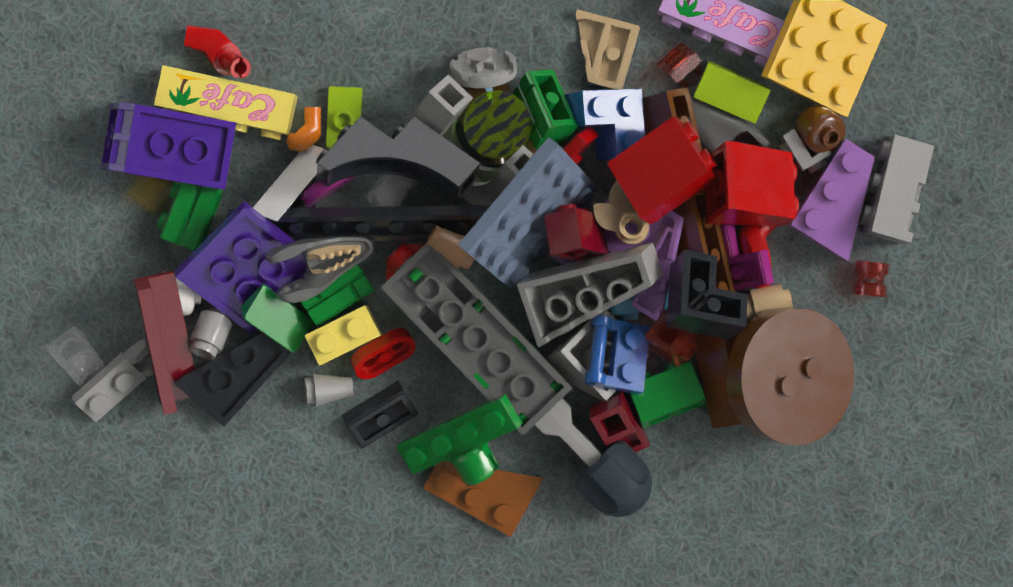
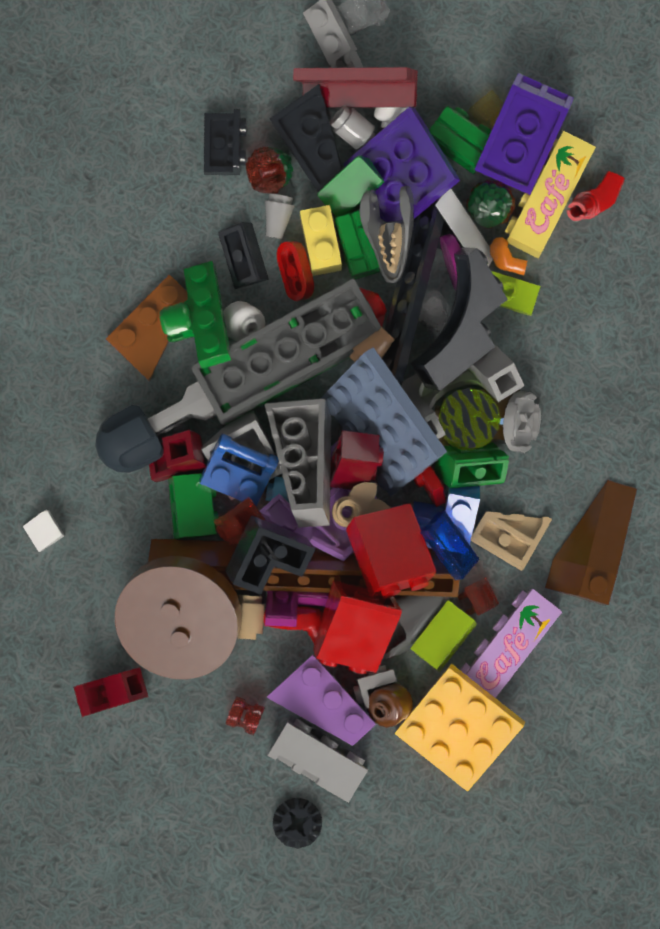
camera: 105 degrees right, 5 degrees down
(254, 162) = (490, 203): none -> dark green piece
(264, 469) = (223, 143): none -> black bracket
(281, 411) = (269, 169): none -> clear red piece
(454, 394) = (242, 320): none -> white head
(640, 109) = (450, 545): none -> clear blue tile
(732, 545) = (43, 530): none -> white slope
(884, 426) = (110, 691): none -> dark red brick
(951, 194) = (300, 808): none -> black gear

